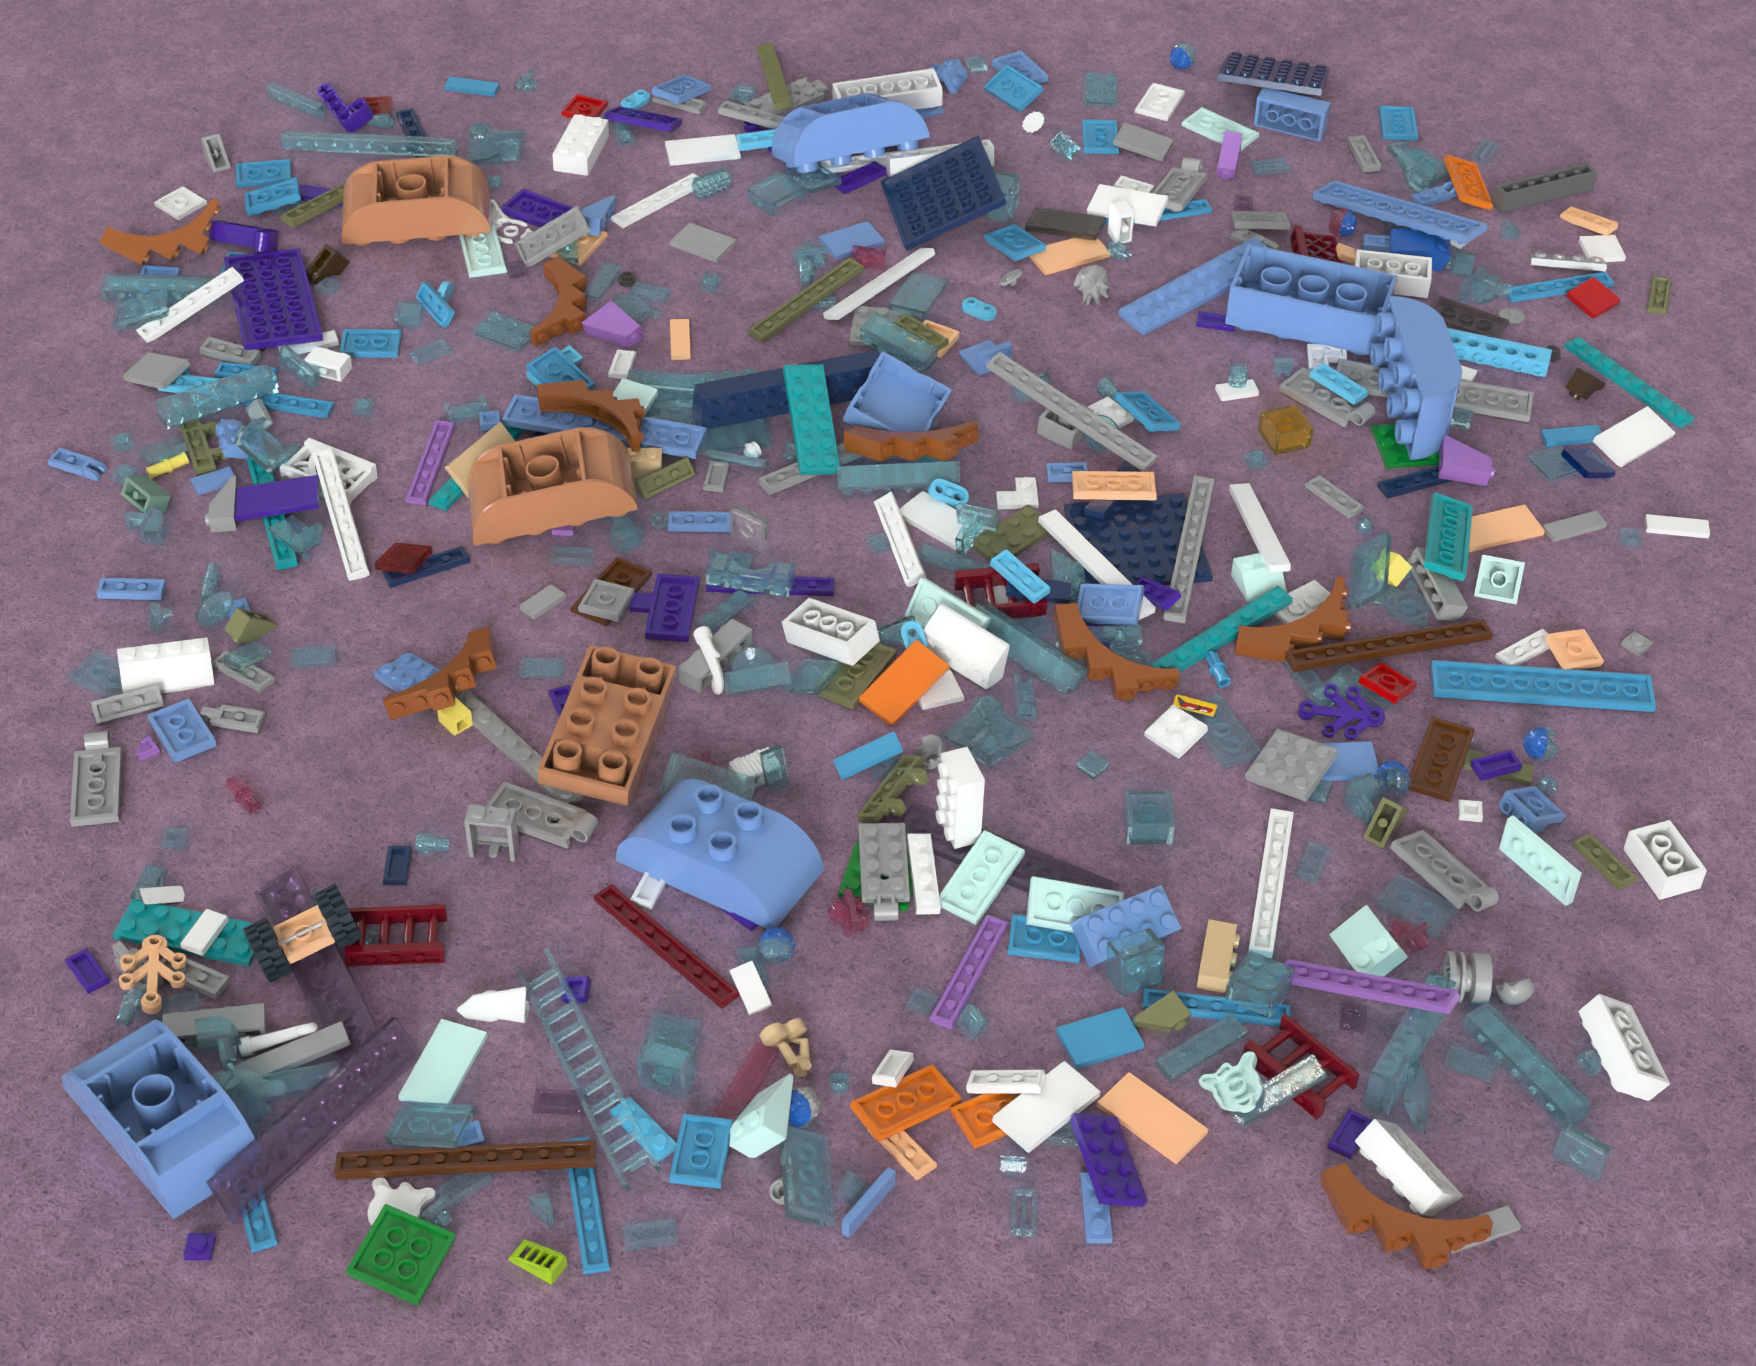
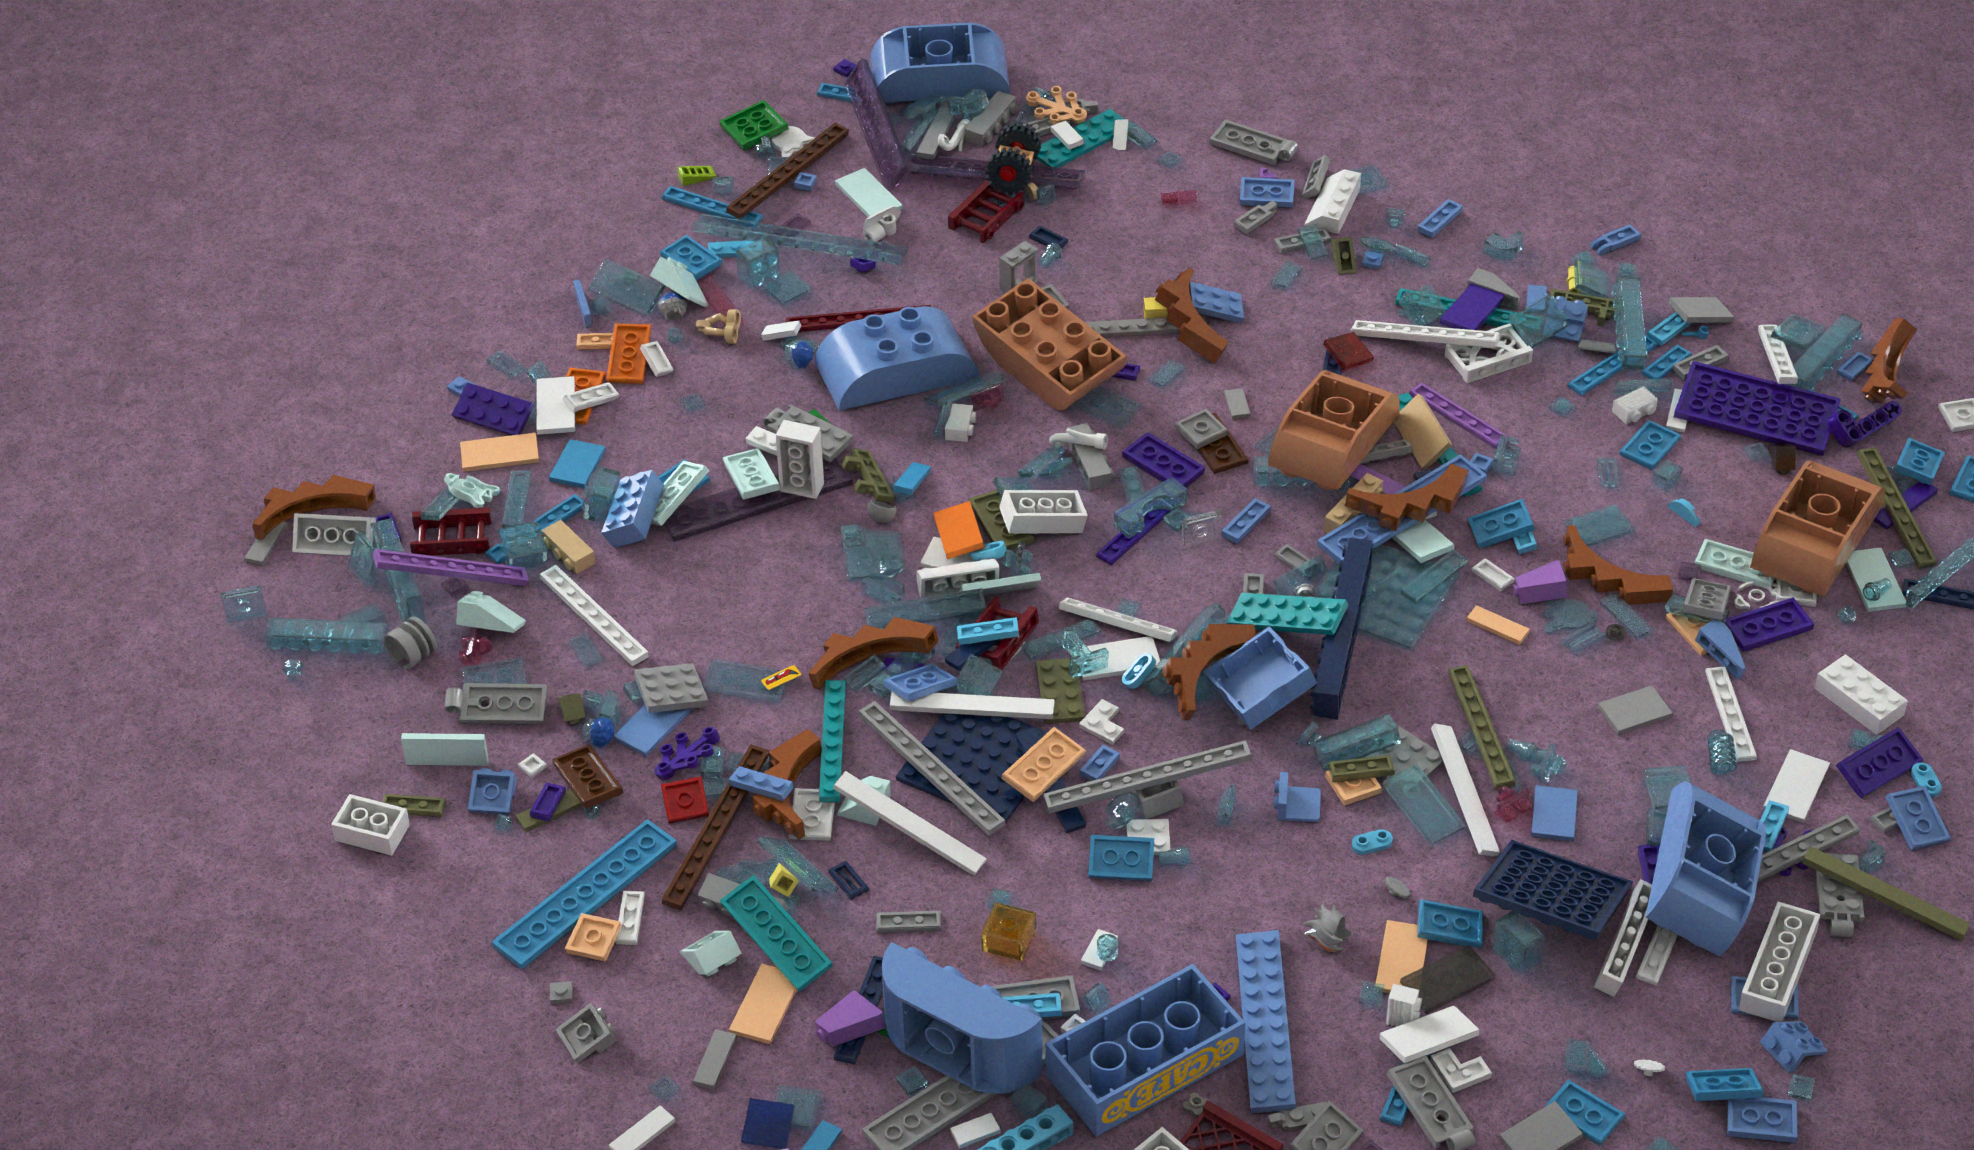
camera: 130 degrees right, 0 degrees up
(87, 971) = (1093, 92): dark purple tile -> none
(145, 493) = (1539, 253): sand green brick -> none
(430, 1124) = (826, 166): clear light blue tile -> none
(435, 304) = (1666, 495): dark azure tile -> none
(494, 146) = (1911, 643): clear light blue slope -> none
(584, 106) = (1939, 737): red tile -> none
(641, 602) = (1189, 450): dark purple tile -> none
(649, 1234) = (664, 220): clear light blue tile -> none
(658, 516) = (1268, 498): clear light blue hinge -> none
(665, 478) = (1314, 523): olive tile -> none
(710, 283) = (1565, 682): clear light blue tile -> none
(846, 912) = (793, 397): clear pink hips -> none
(968, 972) = (690, 435): medium lavender tile -> none
(972, 1021) = (650, 410): clear light blue tile -> none
(1092, 765) = (786, 589): clear light blue plate -> none
(1148, 817) = (706, 579): clear light blue brick -> none
(1158, 594) = (904, 714): dark purple tile -> none
(1164, 1015) = (554, 491): olive slope -> none
(1176, 731) = (769, 651): white plate -> none
(1218, 669) = (802, 715): dark azure axle -> none
(1329, 626) = (761, 783): none -> medium blue plate
(1336, 560) = (856, 891): none -> dark blue tile
(1364, 526) = (854, 912): clear light blue hinge -> none
(1515, 991) = (378, 664): light grey hair -> none
(1539, 745) = (535, 838): blue piece -> none
(1623, 1047) = (276, 678): white brick -> none
(1650, 598) = (587, 1032): none -> light grey plate

